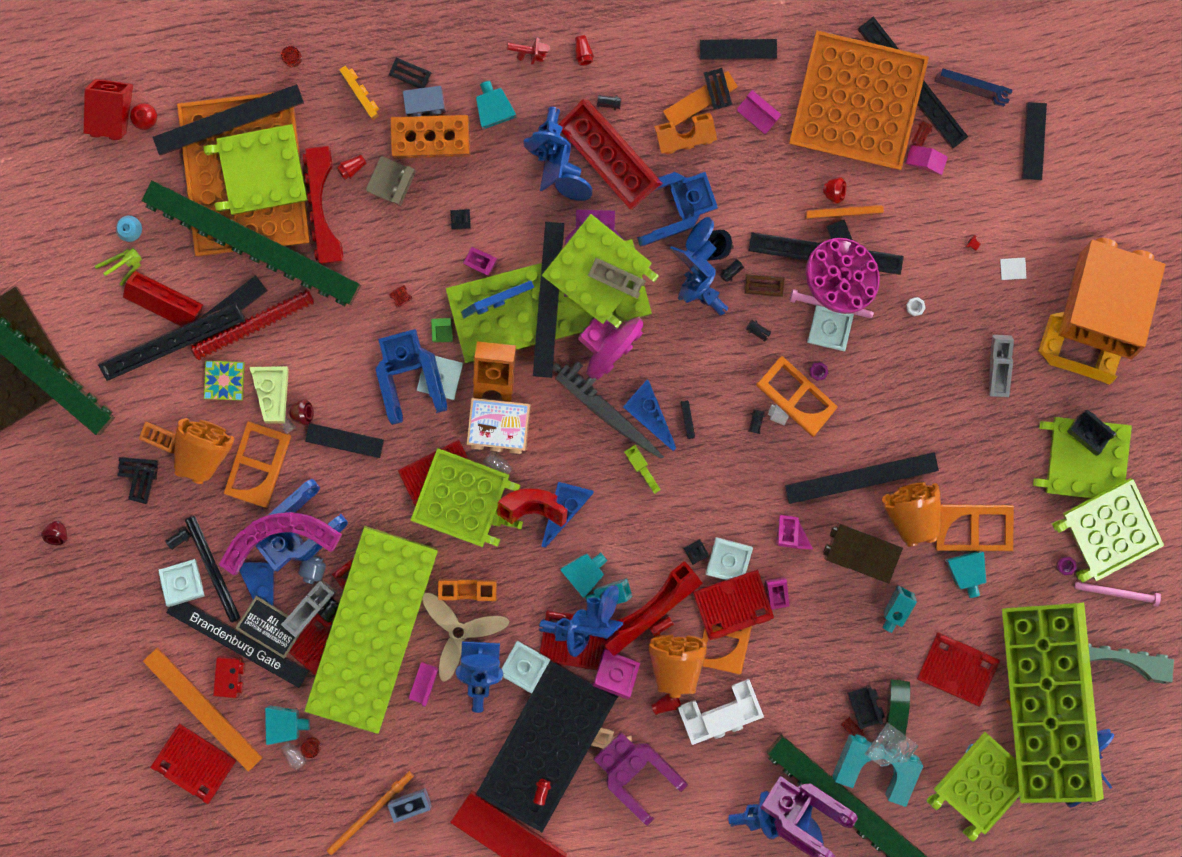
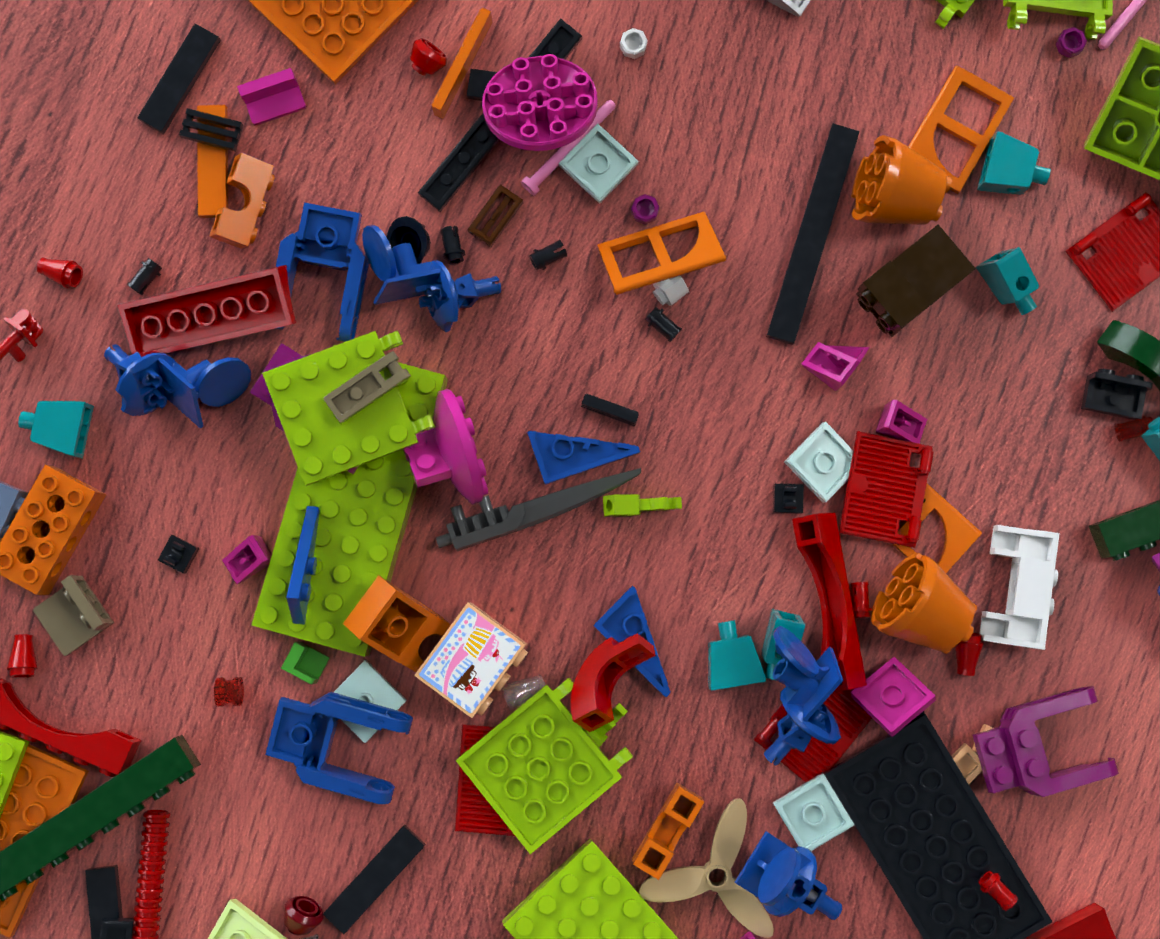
camera: 55 degrees left, 5 degrees down
(547, 303) = (351, 502): black tile -> none

